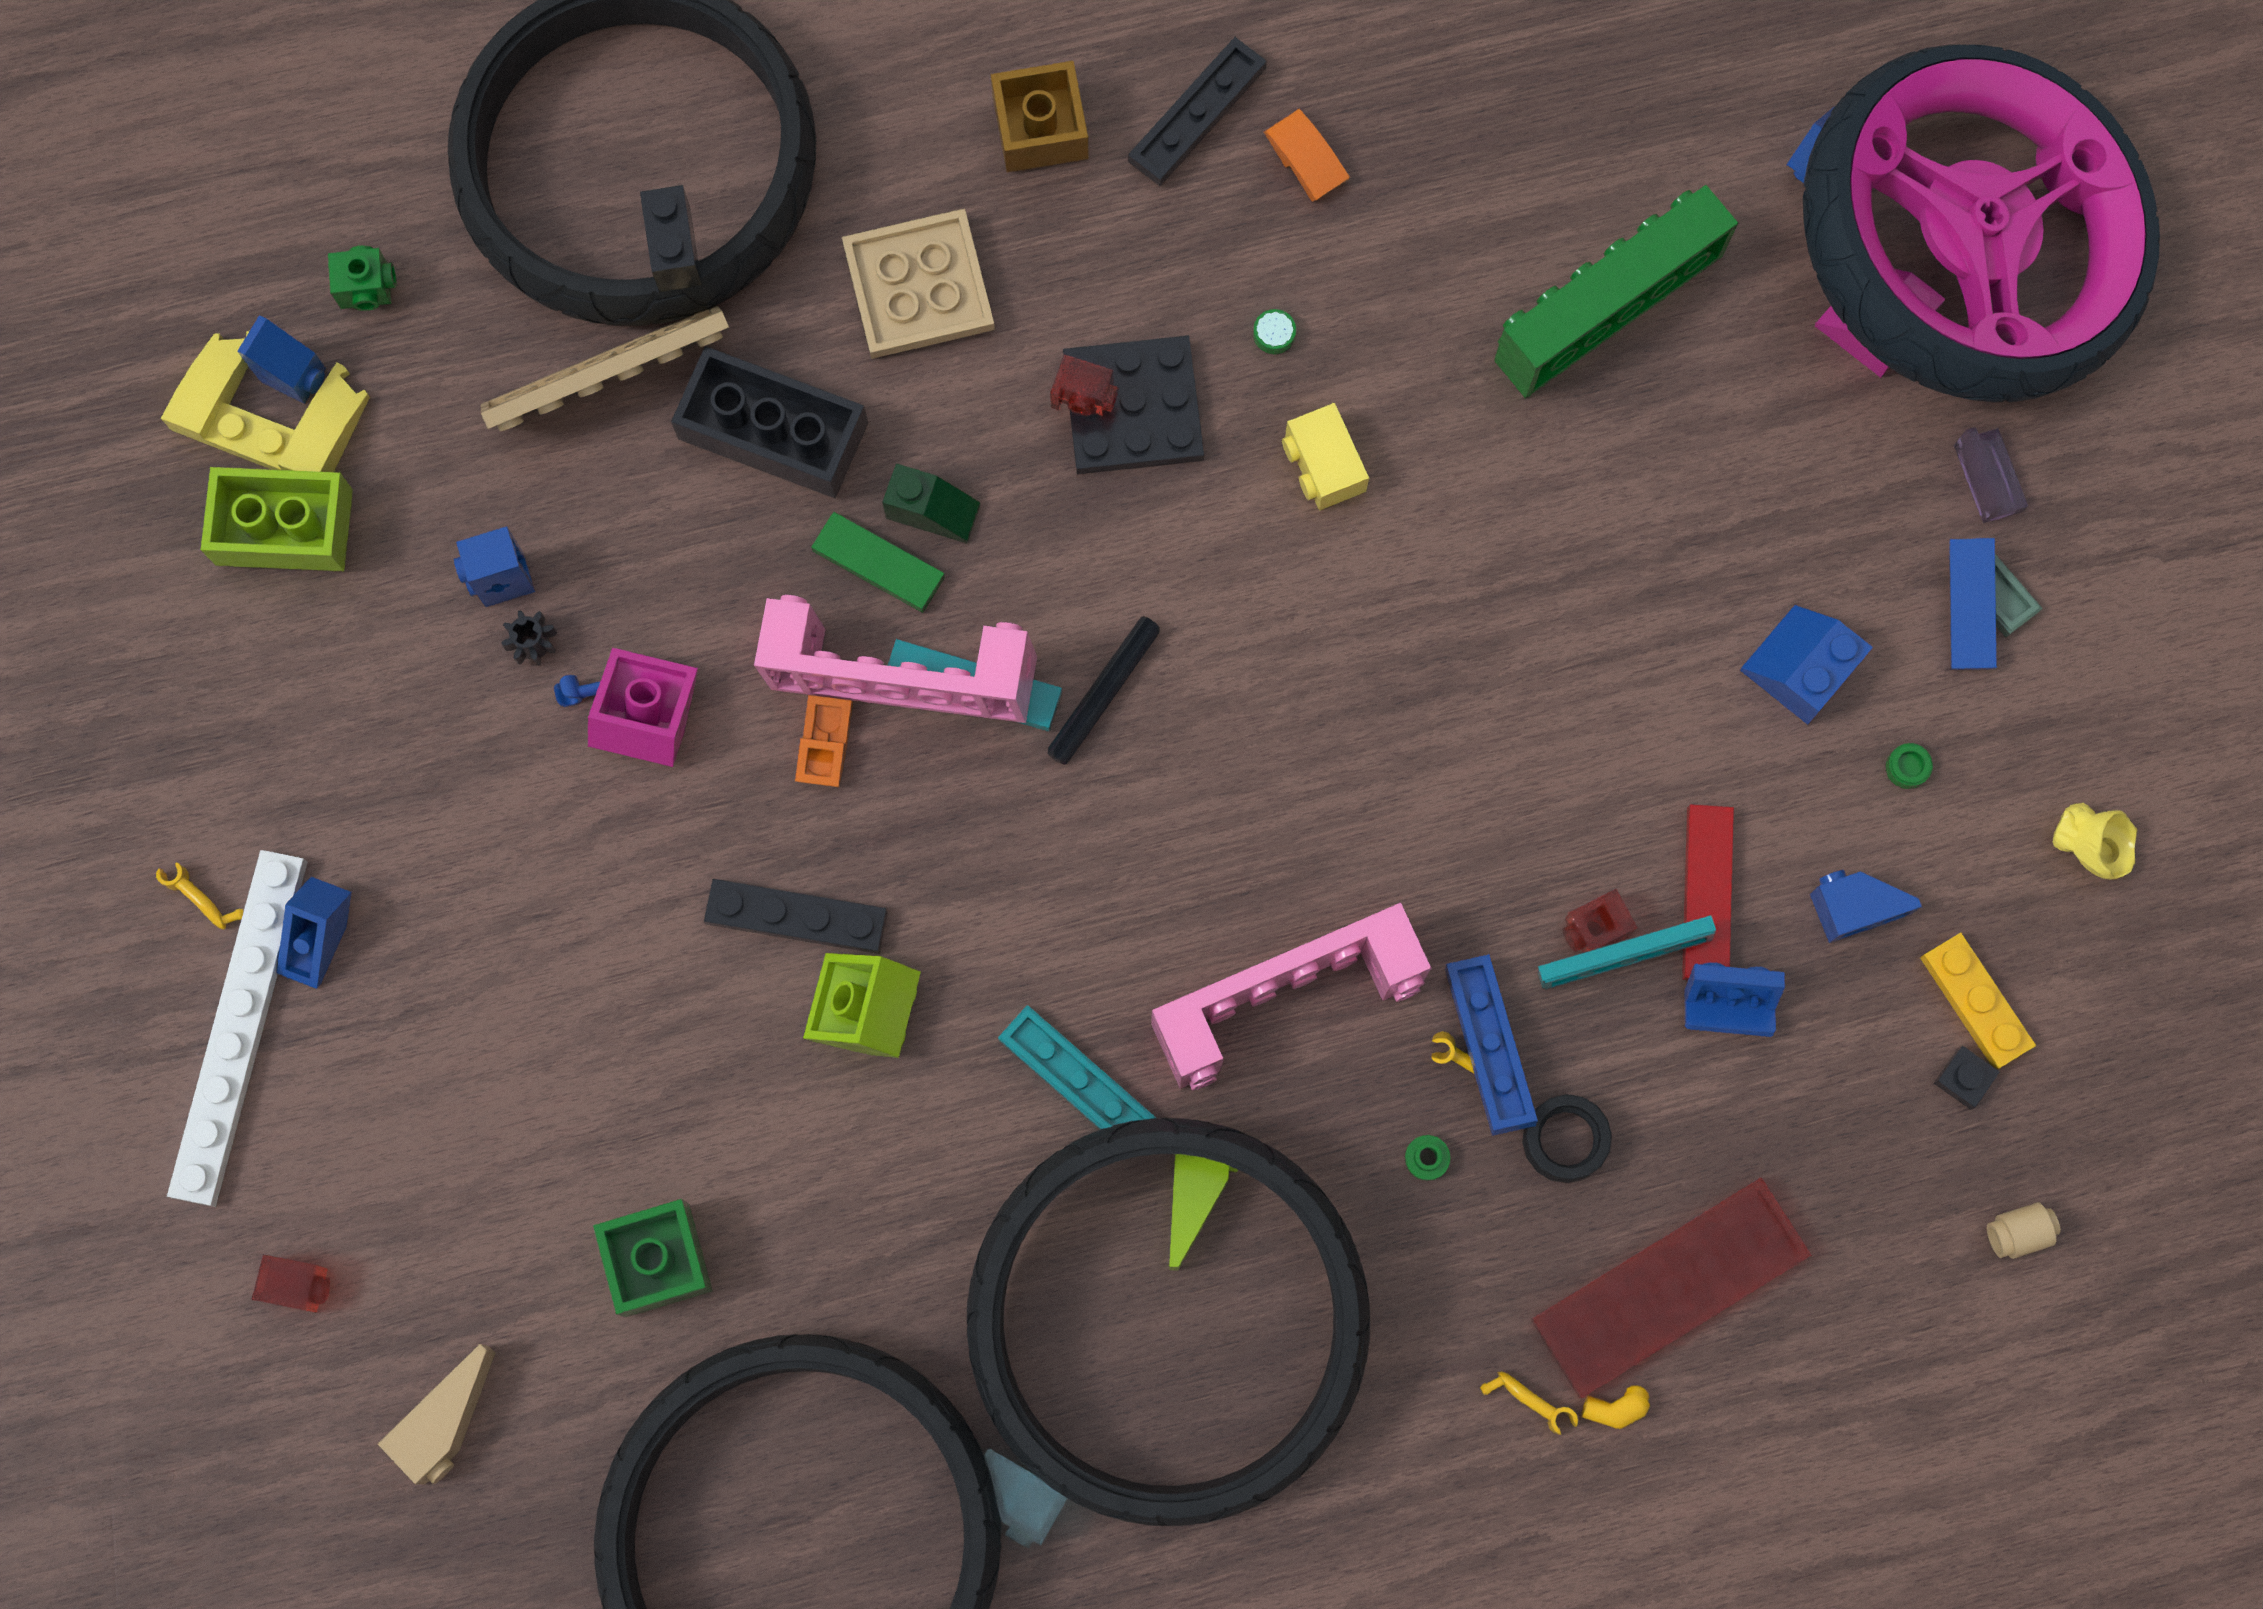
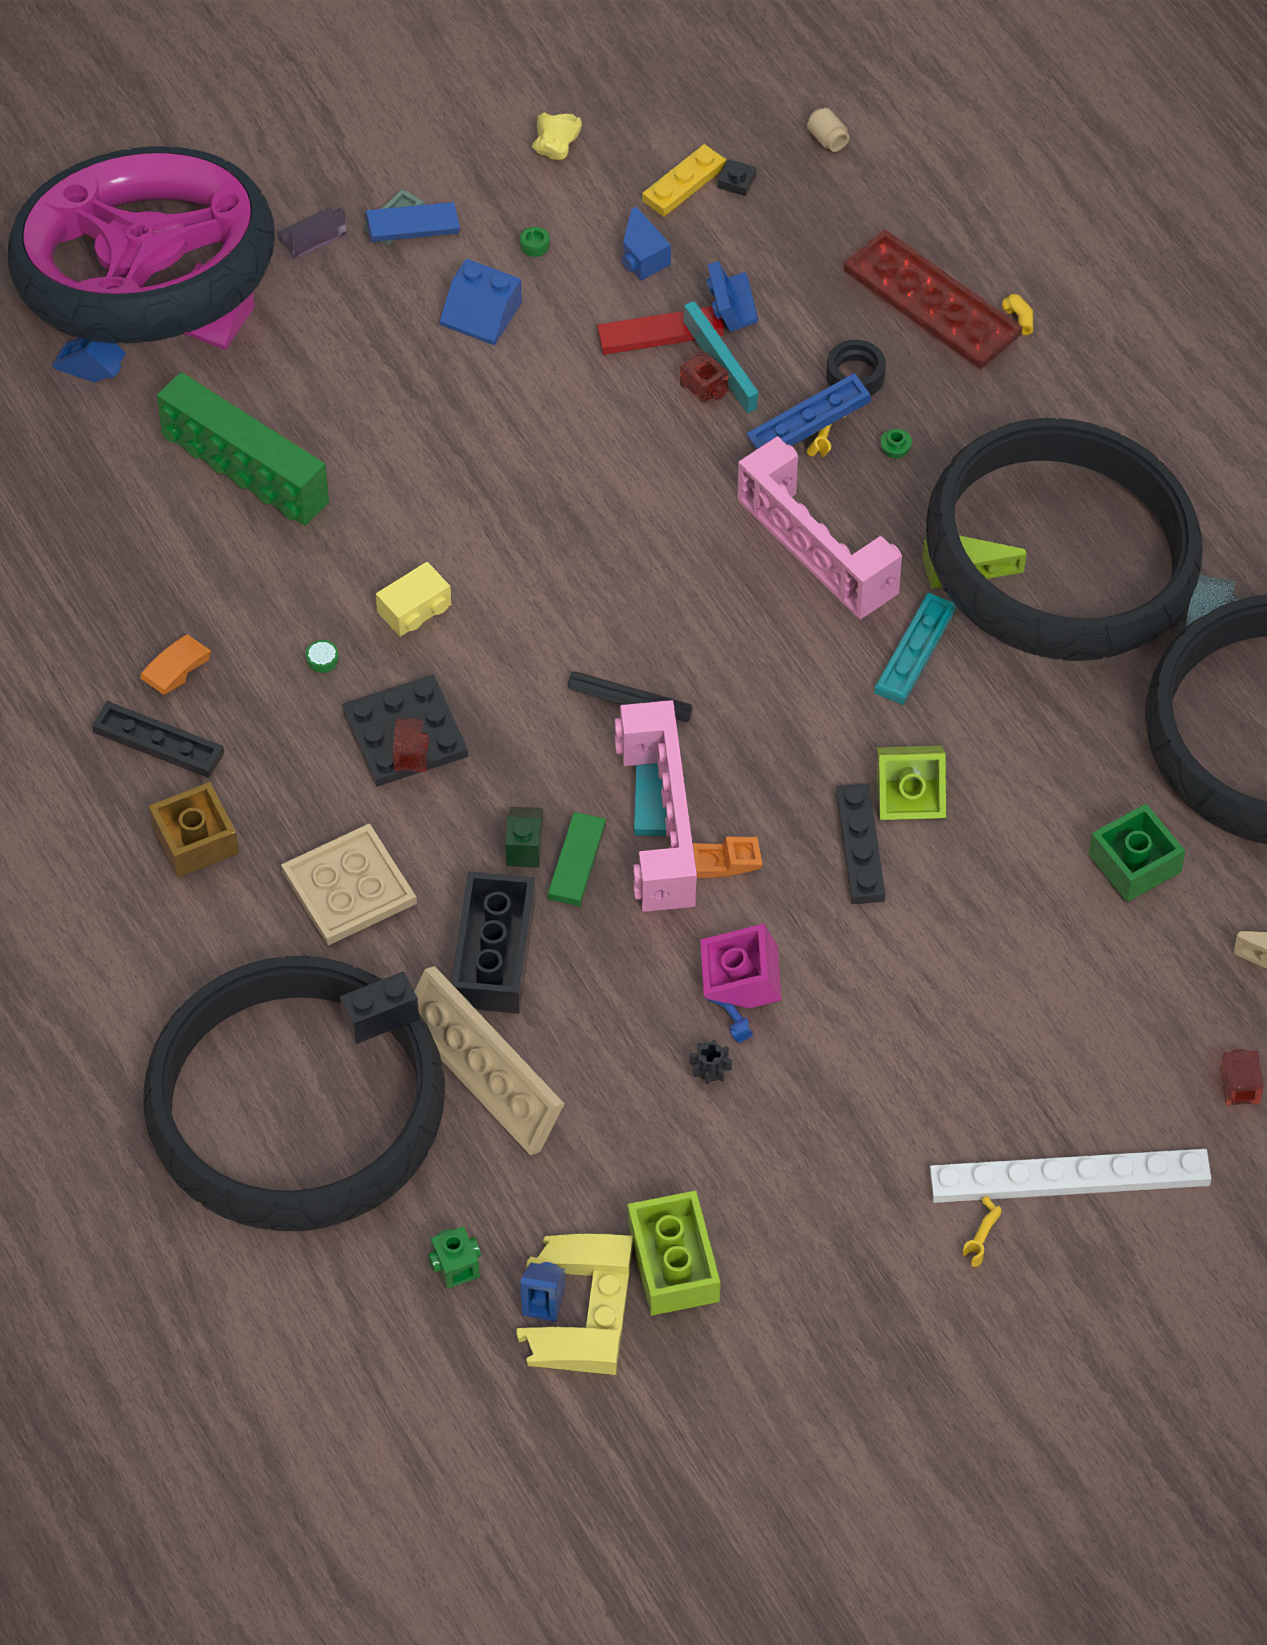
camera: 105 degrees left, 20 degrees down
(312, 931) = (981, 1137): blue slope -> none
(493, 567) = (666, 1086): blue brick -> none
(1530, 1399) = (1037, 345): yellow piece -> none

